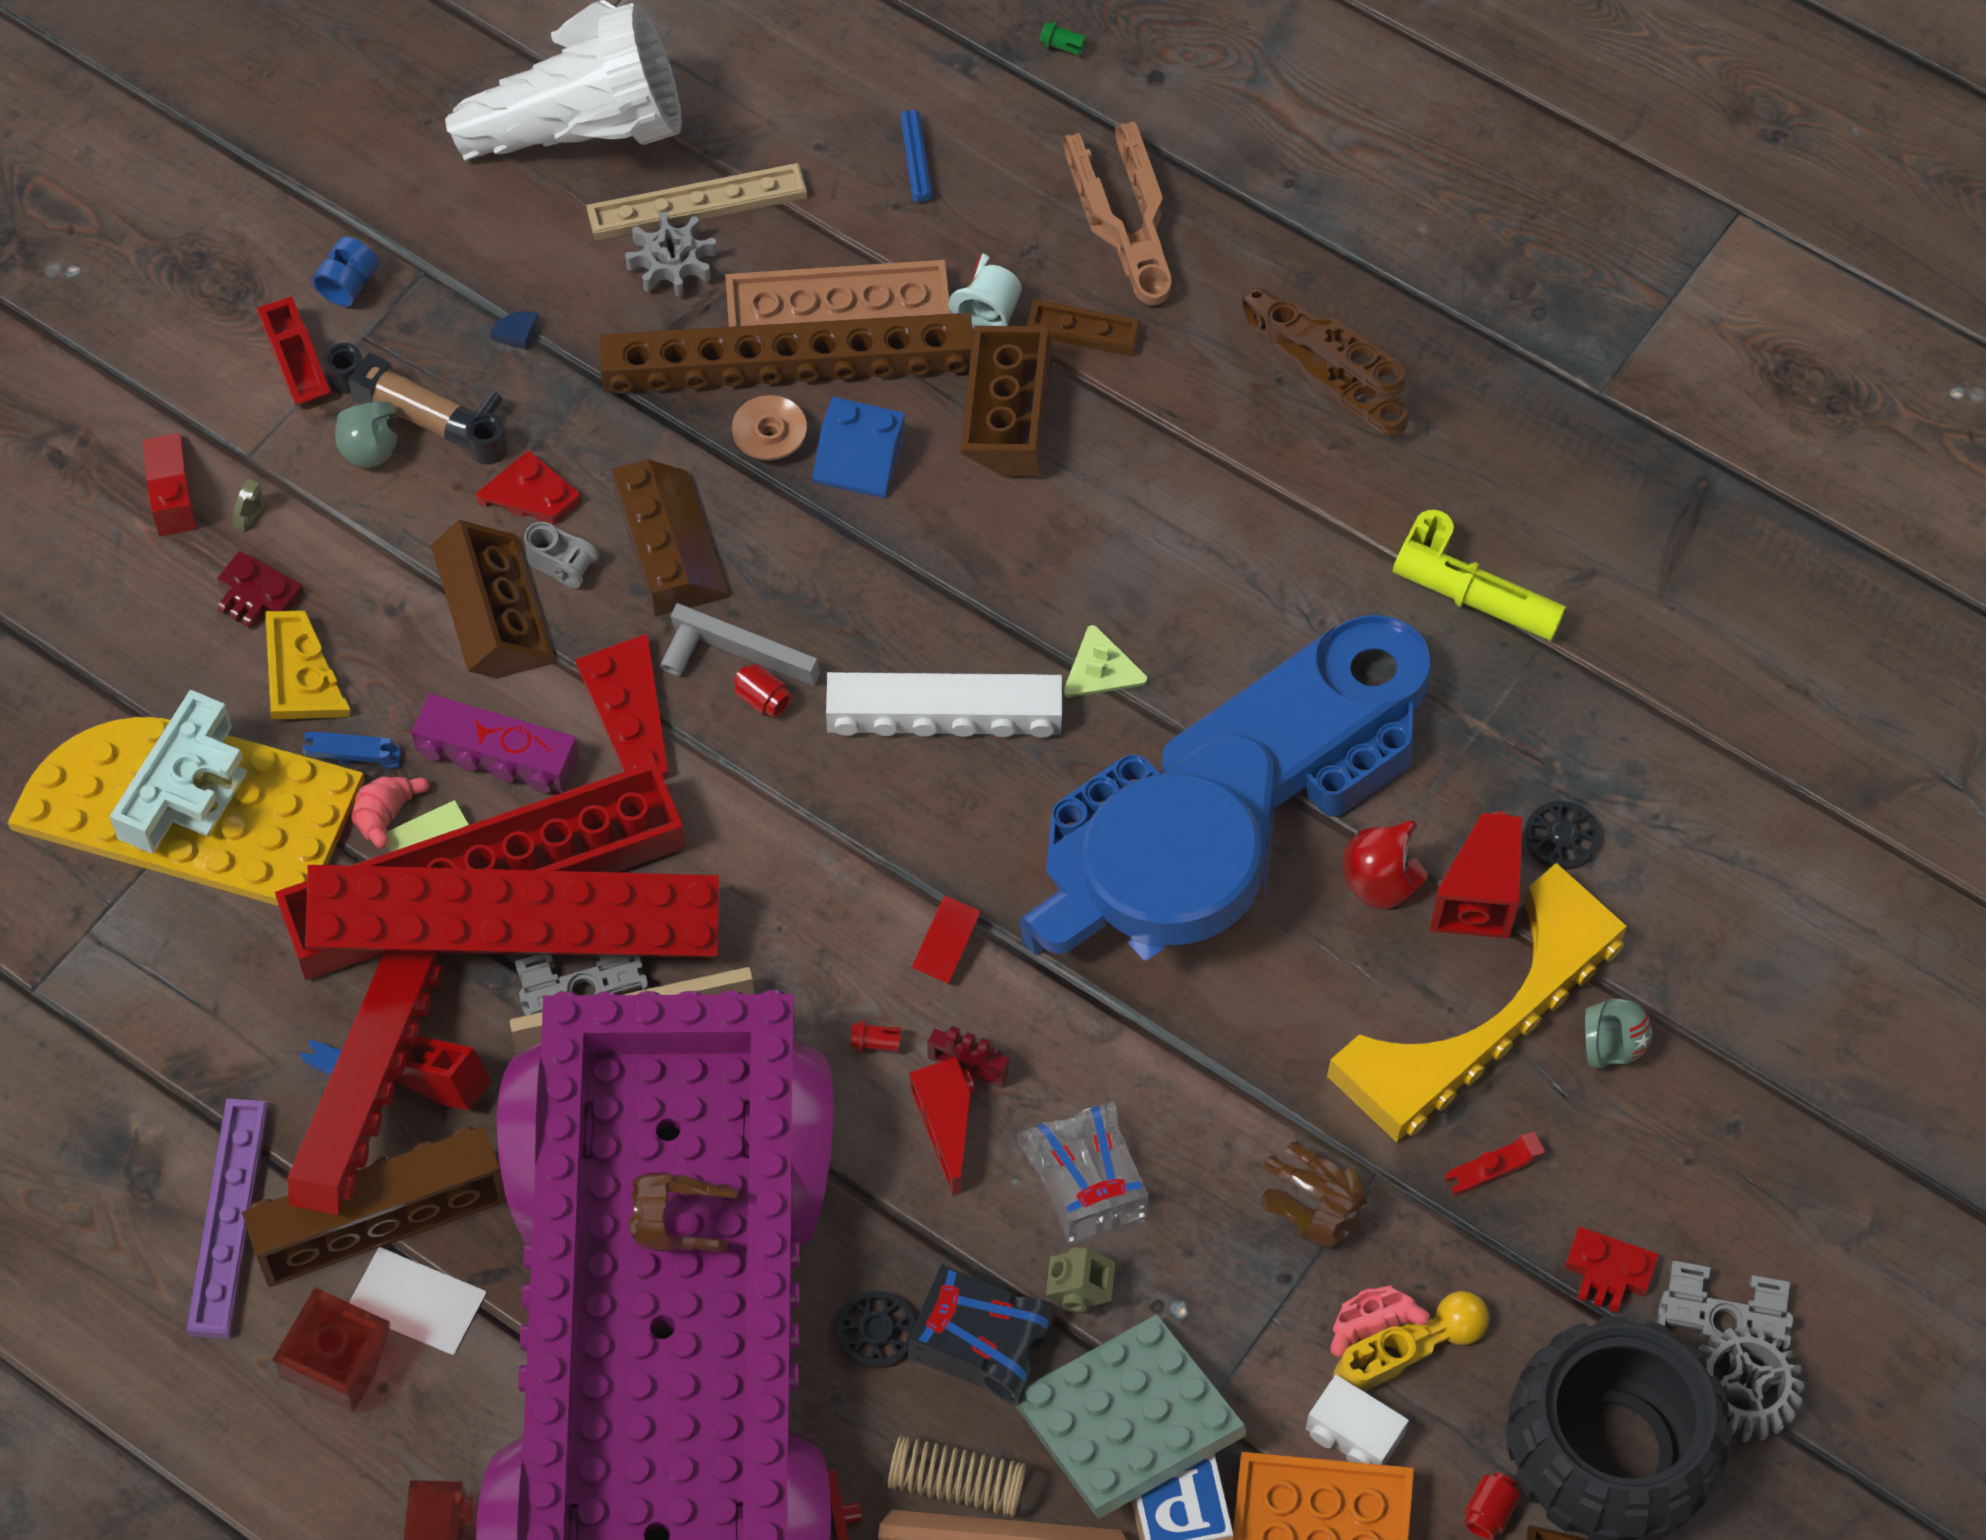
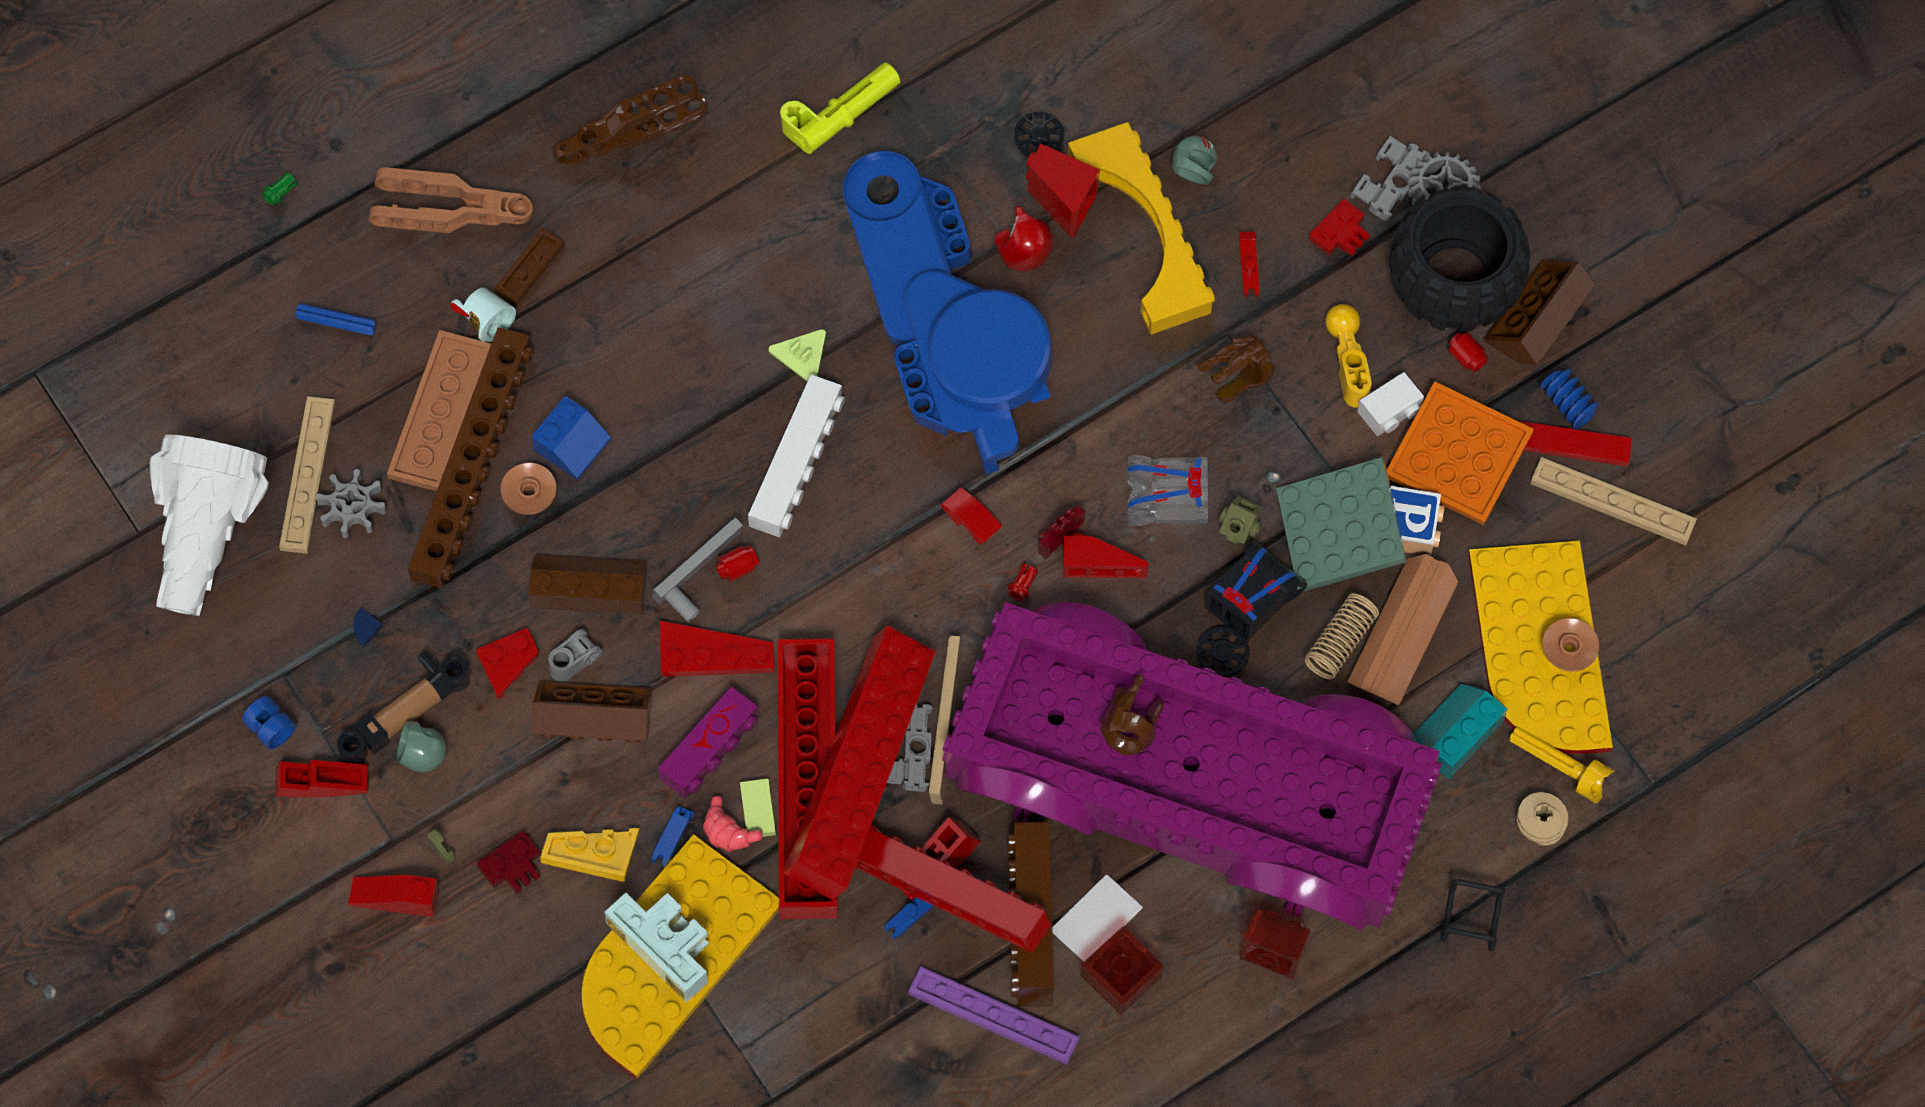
camera: 70 degrees left, 5 degrees up
(1007, 398) = (577, 327): reddish brown slope -> none
(1373, 1312) = (1325, 366): coral piece -> none

